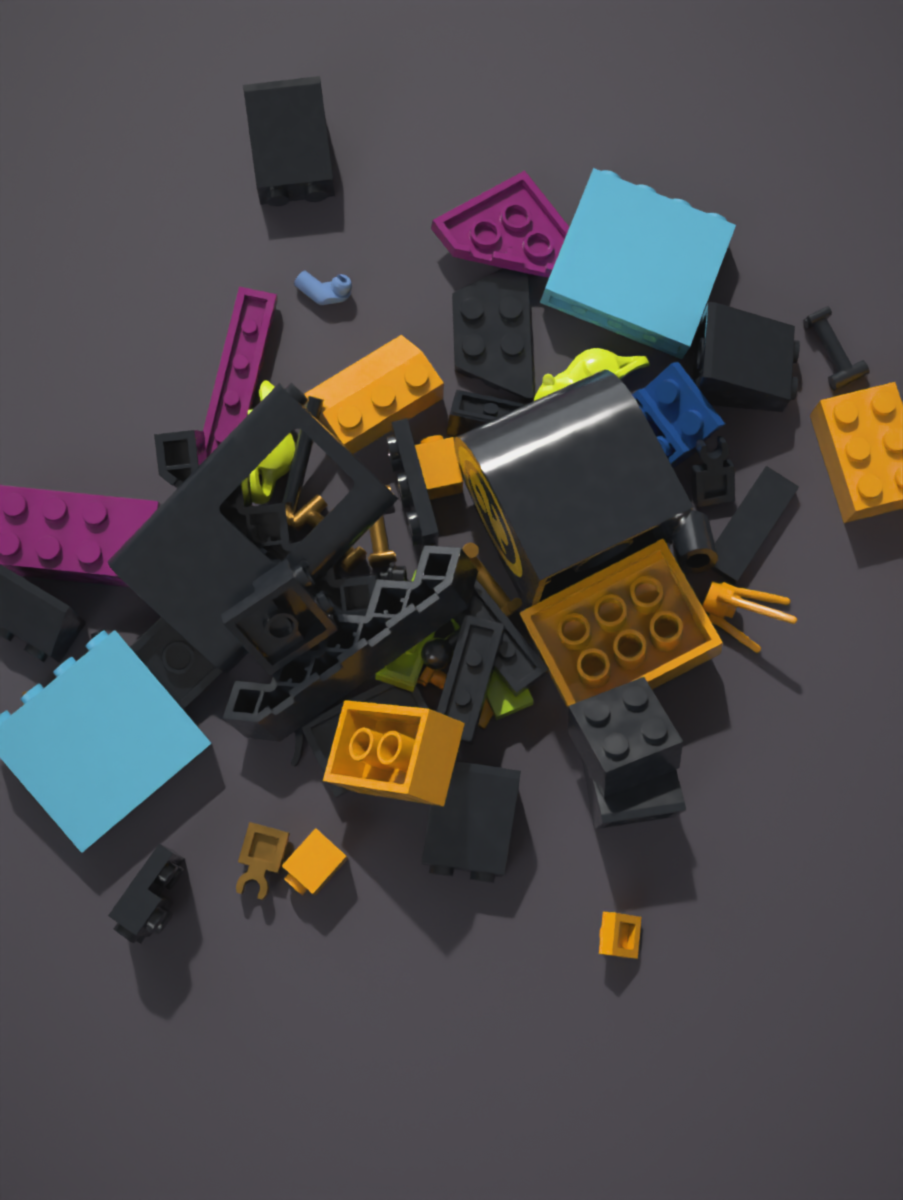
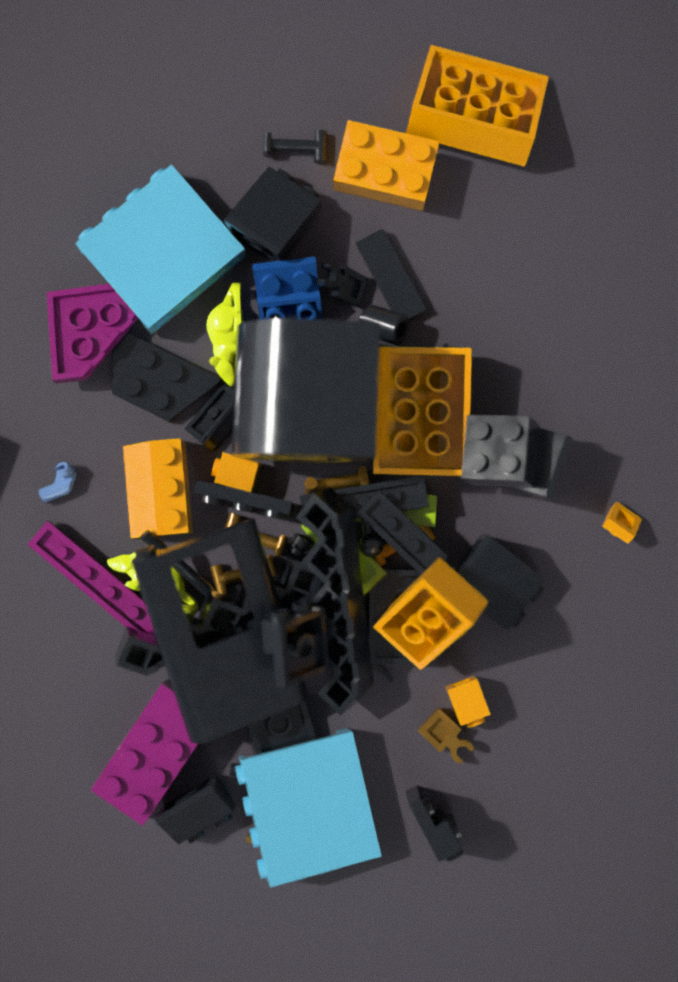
camera: 50 degrees left, 10 degrees up
(725, 598) = (435, 327): light orange plant -> none

